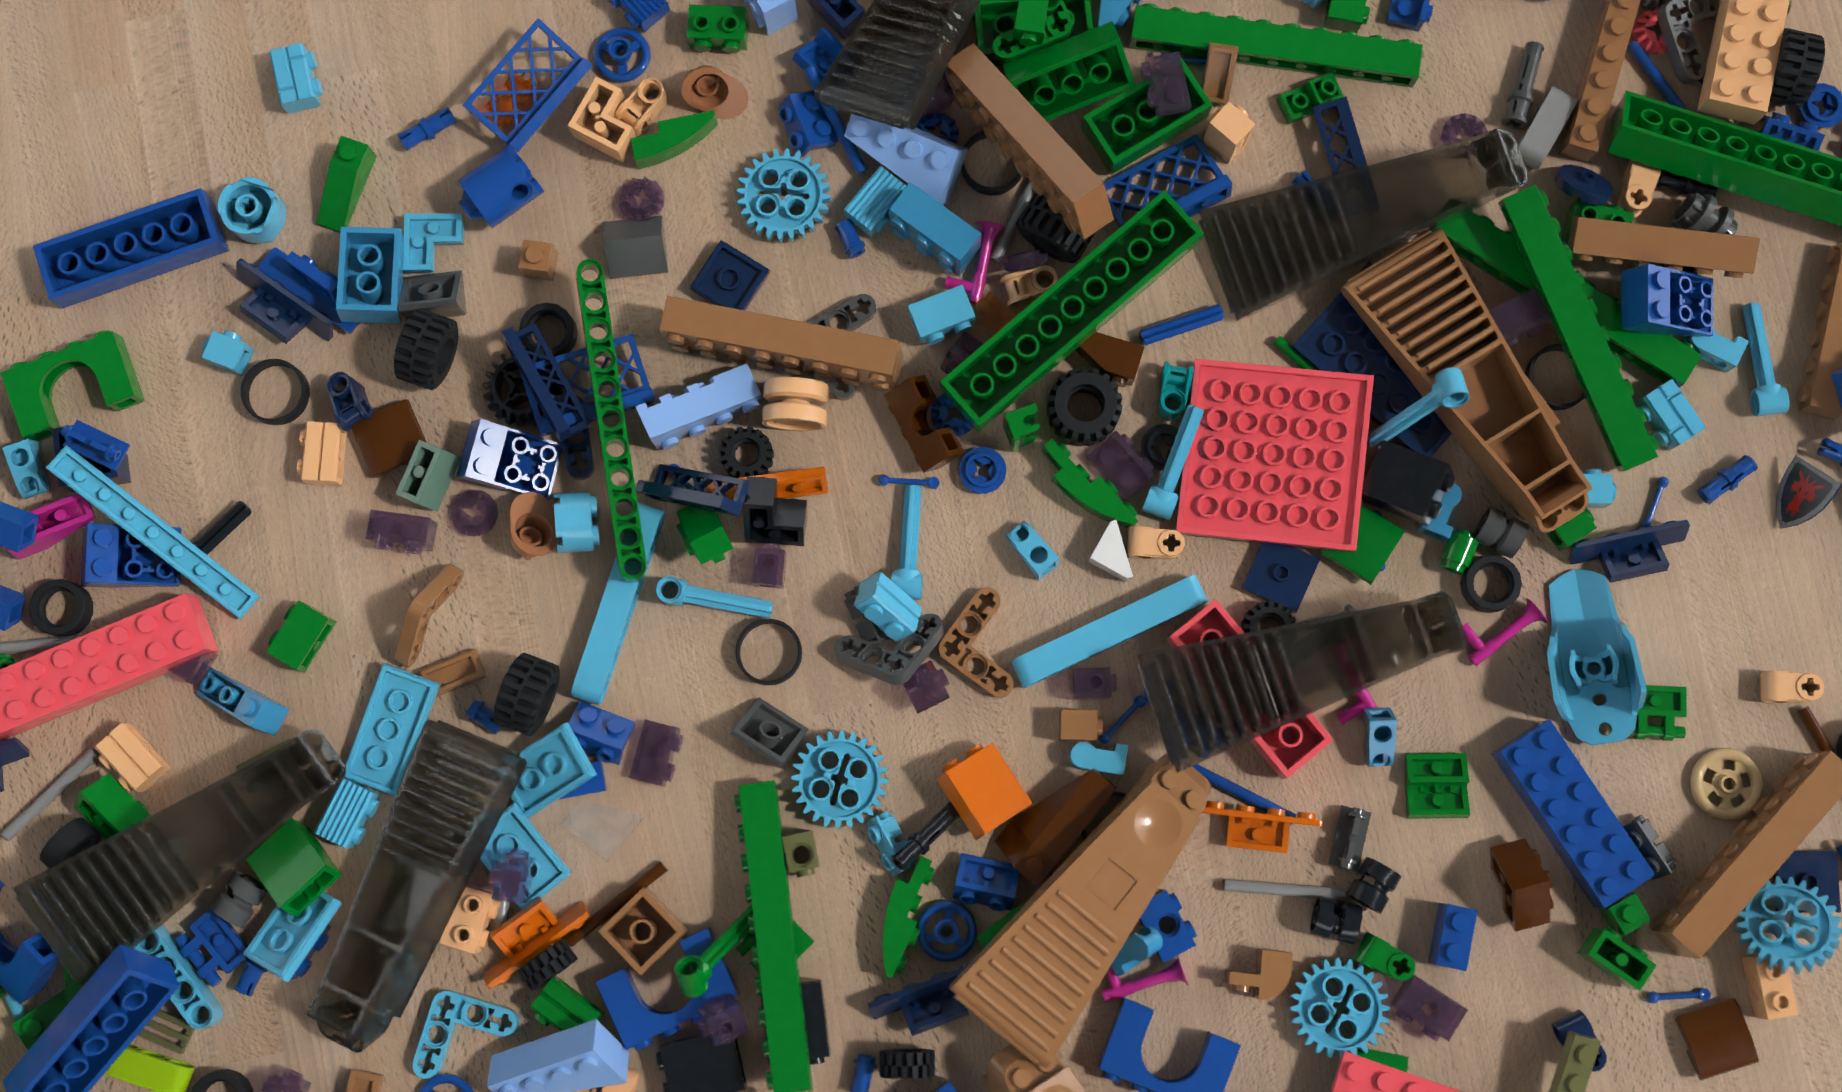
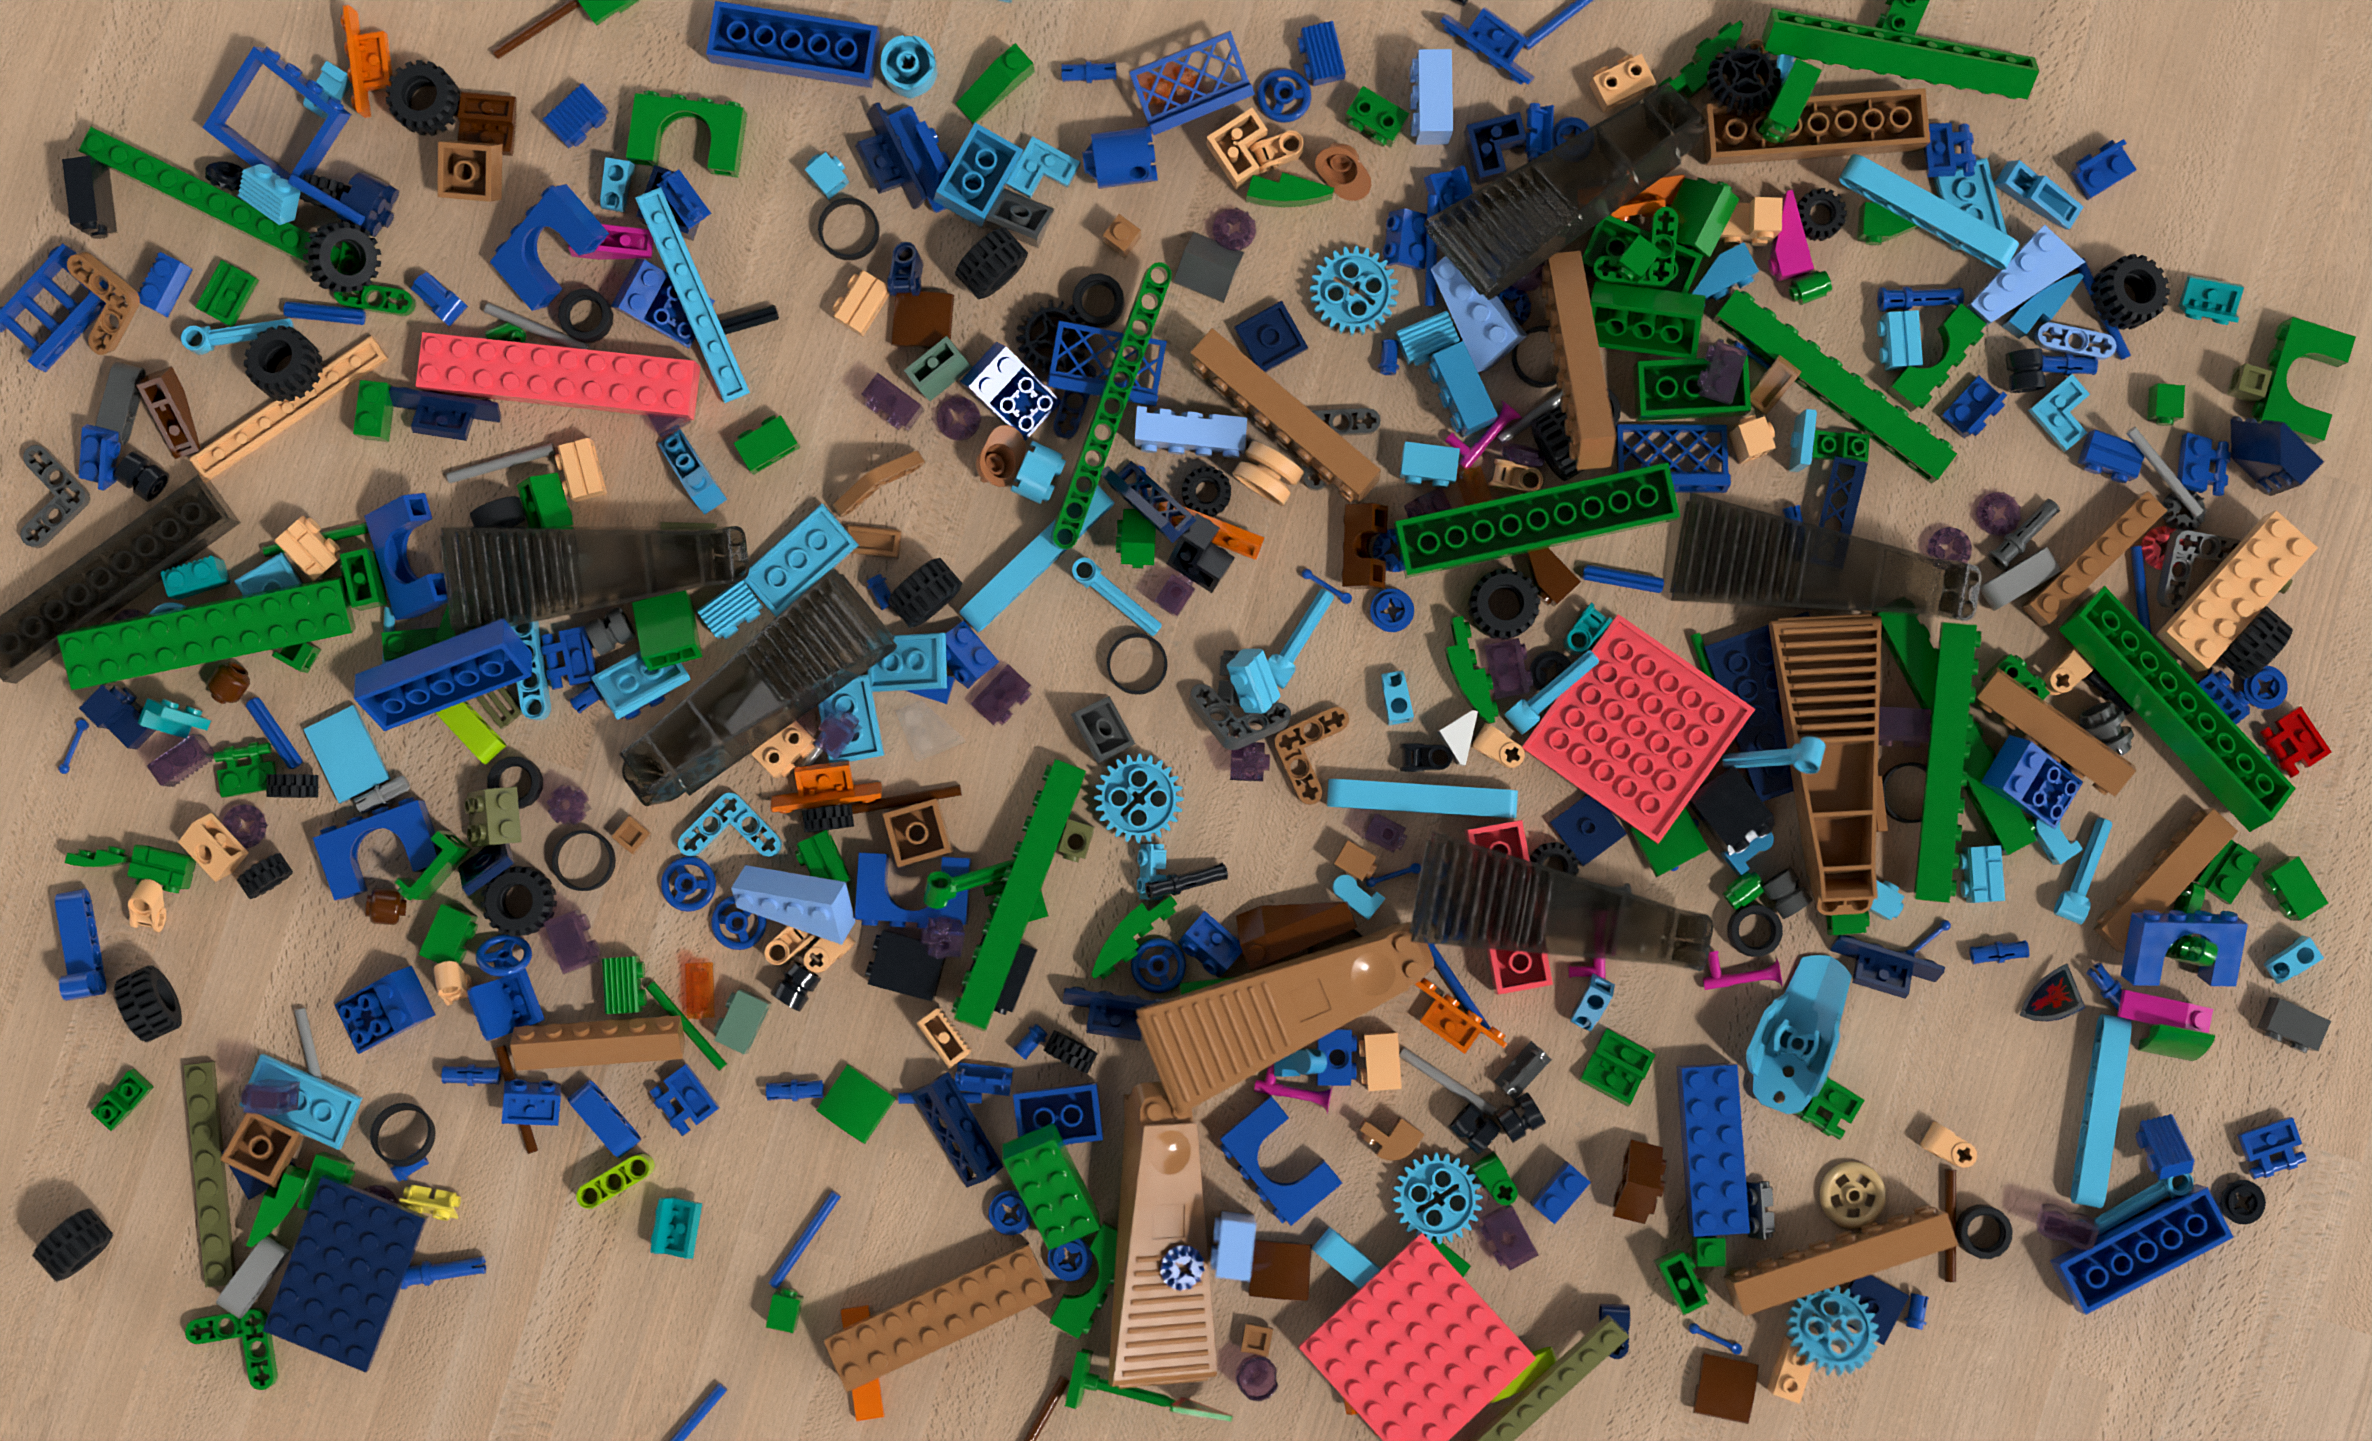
camera: 25 degrees right, 5 degrees up
(536, 381) = (1067, 343): dark blue fence -> none
(983, 789) = (1249, 870): orange brick -> none
(1018, 425) = (1440, 592): green hinge -> none
(1088, 592) = (1422, 757): none -> black piece
(1211, 905) = (1381, 1061): none -> light nougat brick
(1275, 107) = (1802, 440): none -> medium azure plate
(1479, 86) = (1986, 513): none -> clear purple gear
(1584, 183) = (2024, 644): dark blue plate -> none

